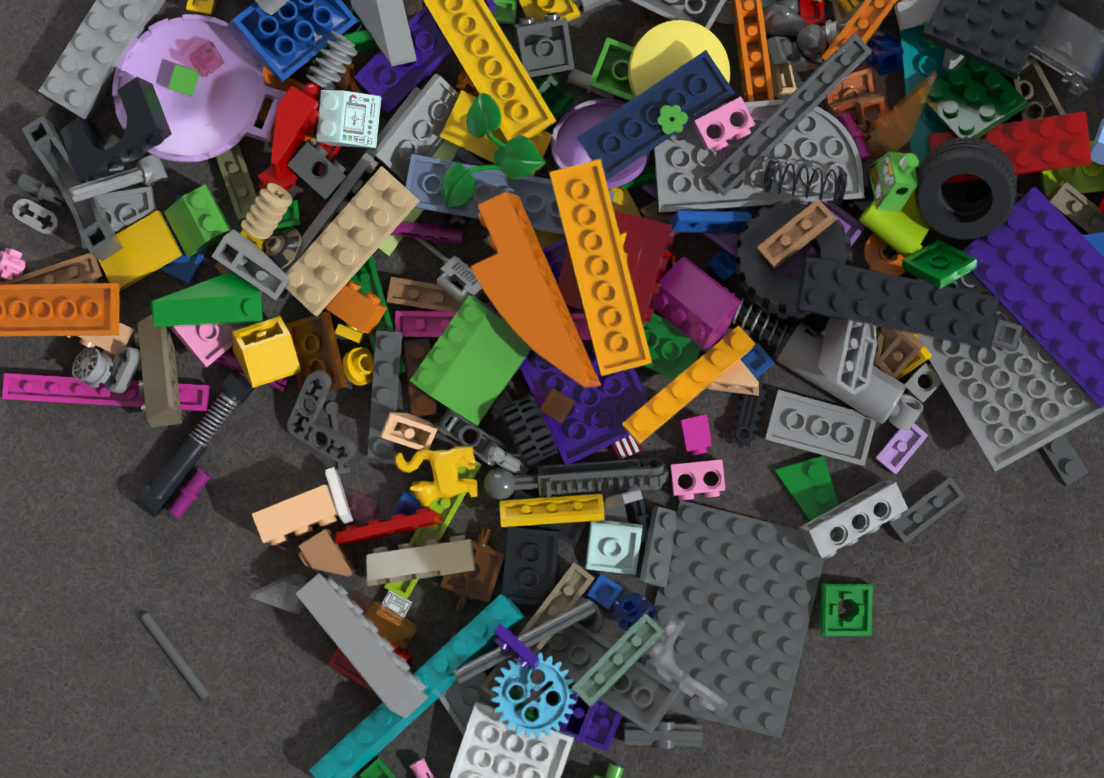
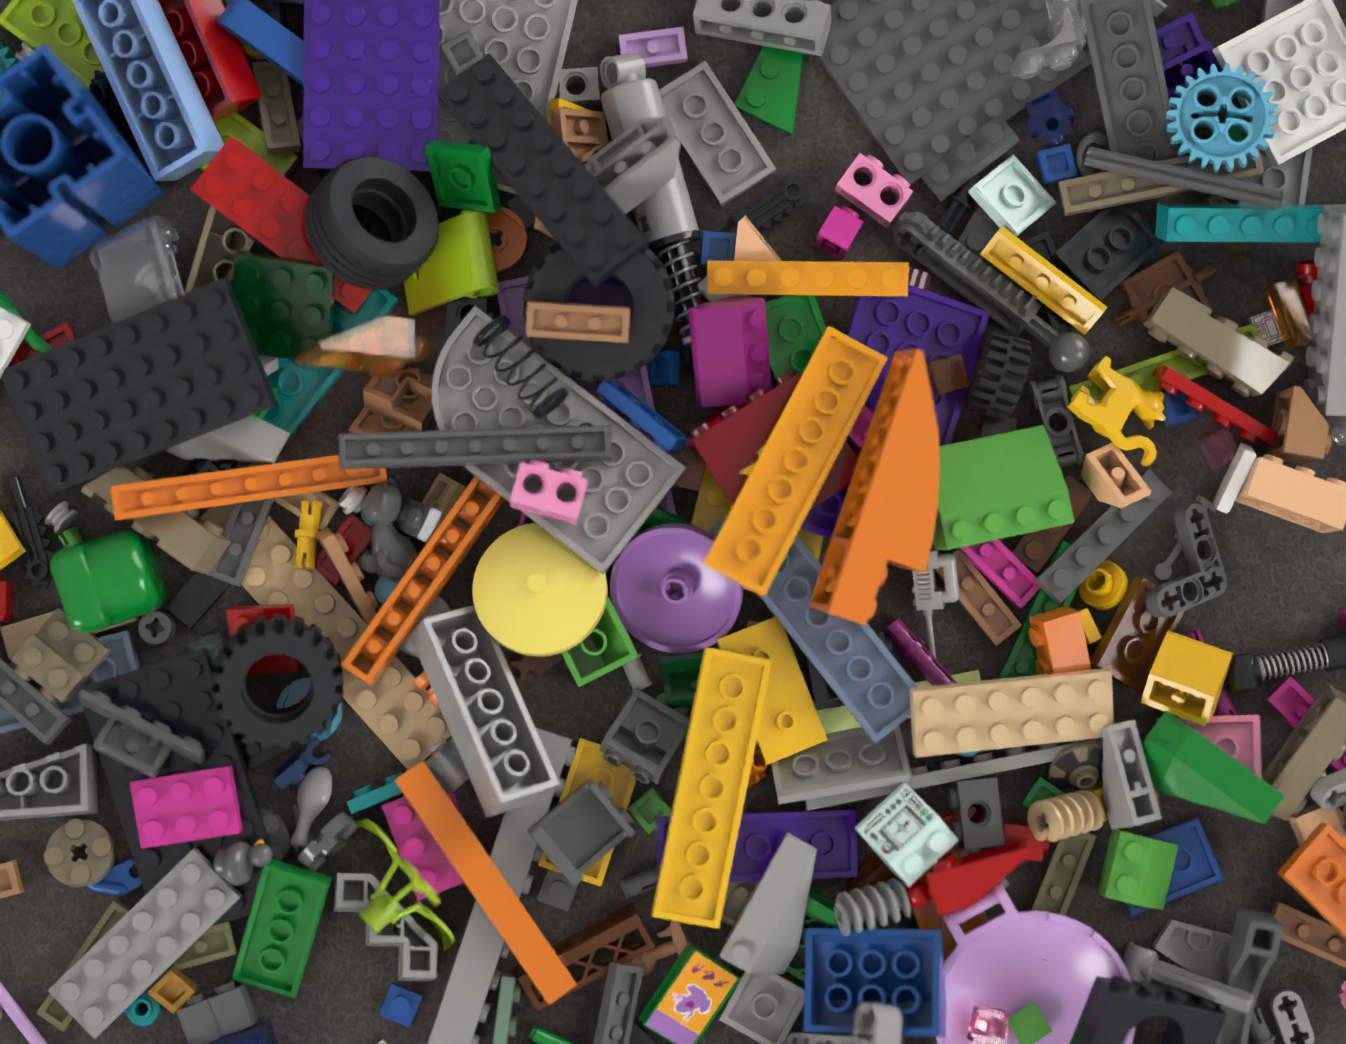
camera: 140 degrees left, 0 degrees up
(145, 249) = (1213, 889): yellow tile -> none
(507, 461) = (1044, 367): light grey axle -> none
(515, 158) = (780, 640): green plant -> none
(524, 655) = (1204, 186): dark purple plate -> none
(618, 660) = (1112, 79): sand green plate -> none
(624, 498) = (964, 230): light grey tile -> none
(634, 127) = (606, 560): dark blue plate -> none
(679, 119) = (596, 531): bright green plant -> none
(858, 136) = (422, 390): magenta pin -> none
(886, 54) = (319, 434): clear blue brick -> none
(893, 180) = (432, 294): bright green torso -> none

